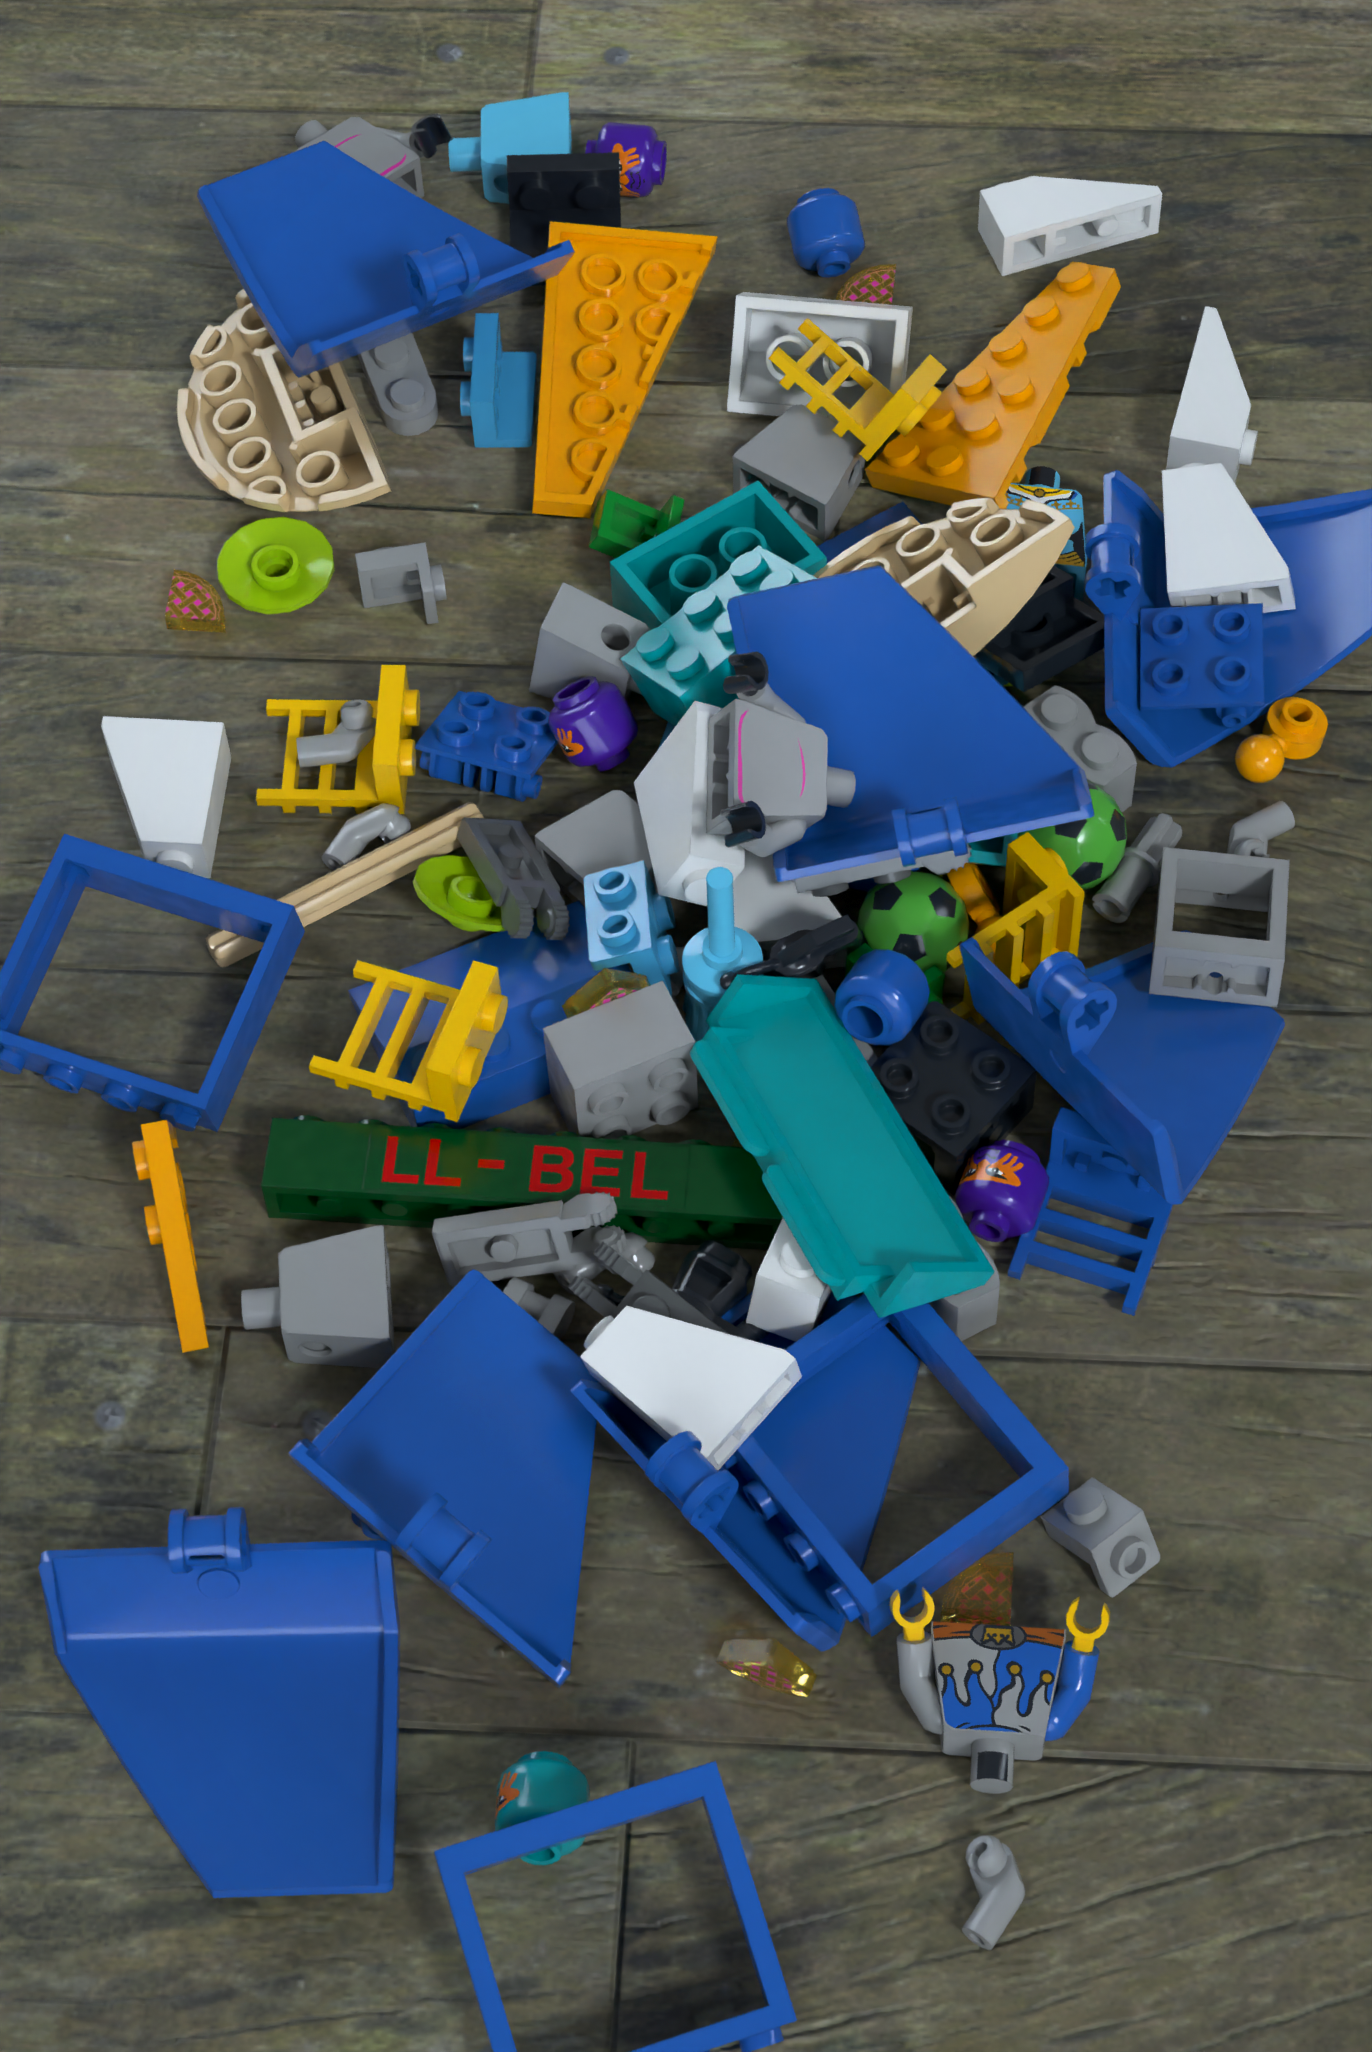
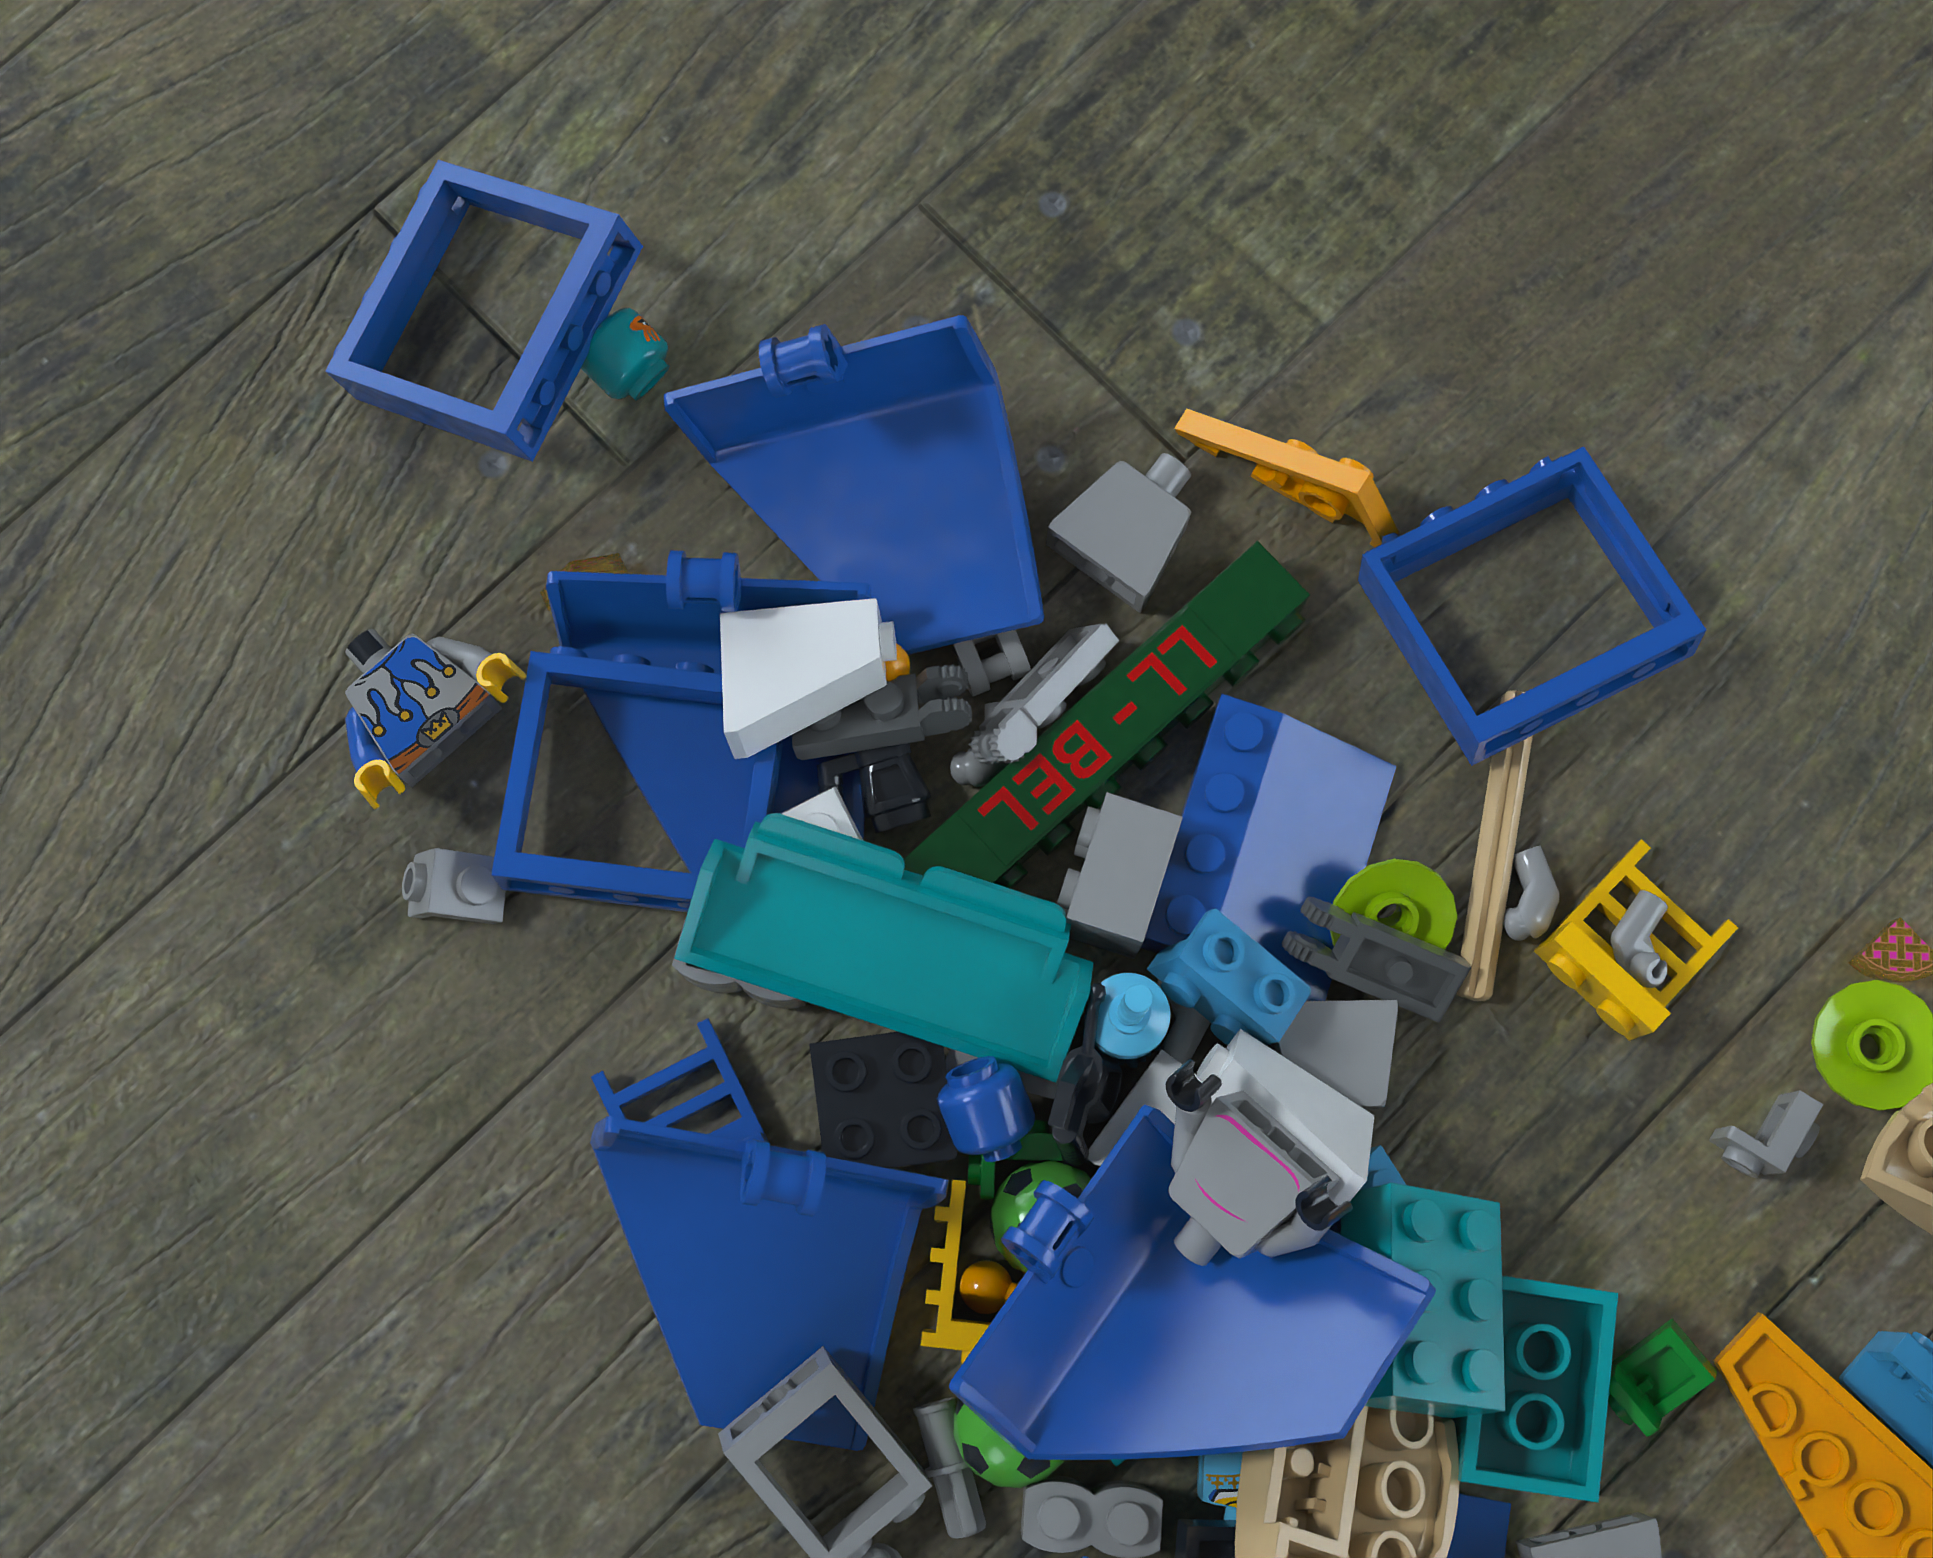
camera: 130 degrees right, 20 degrees up
(172, 786) = (1704, 775): white slope -> none
(245, 1697) = (852, 224): blue panel -> none
(454, 1052) = (1227, 744): yellow plate -> none
(491, 735) = (1538, 1070): blue hinge -> none
(584, 640) = (1566, 1204): light grey torso -> none
(593, 723) = (1475, 1150): dark purple head -> none
(603, 988) = (1172, 897): clear yellow tile -> none
(981, 1593) = (491, 769): clear yellow tile -> none
(998, 1887) = (298, 591): light grey arm -> none
(1002, 1190) = (766, 1068): dark purple head -> none

